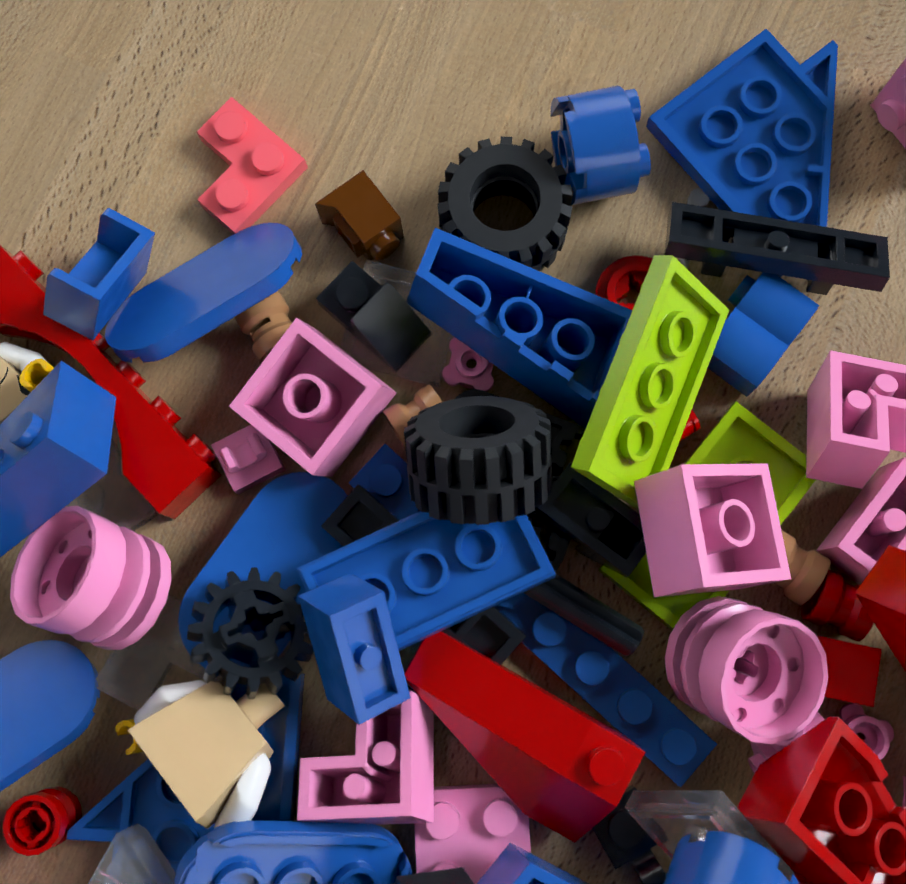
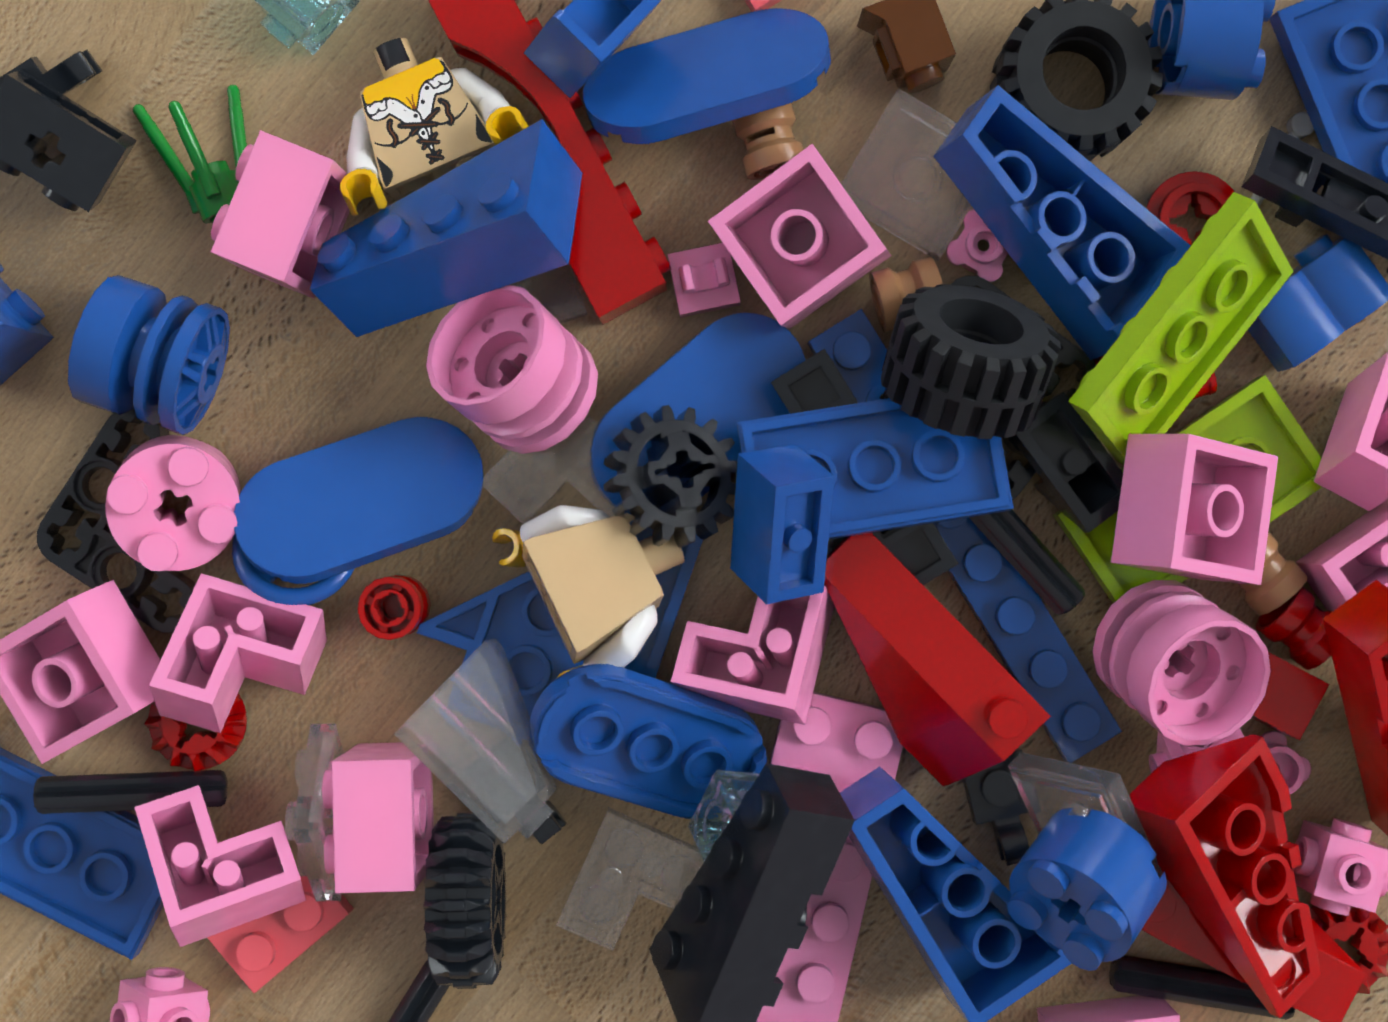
camera: 10 degrees right, 10 degrees up
(374, 315) = (892, 159): black slope -> none

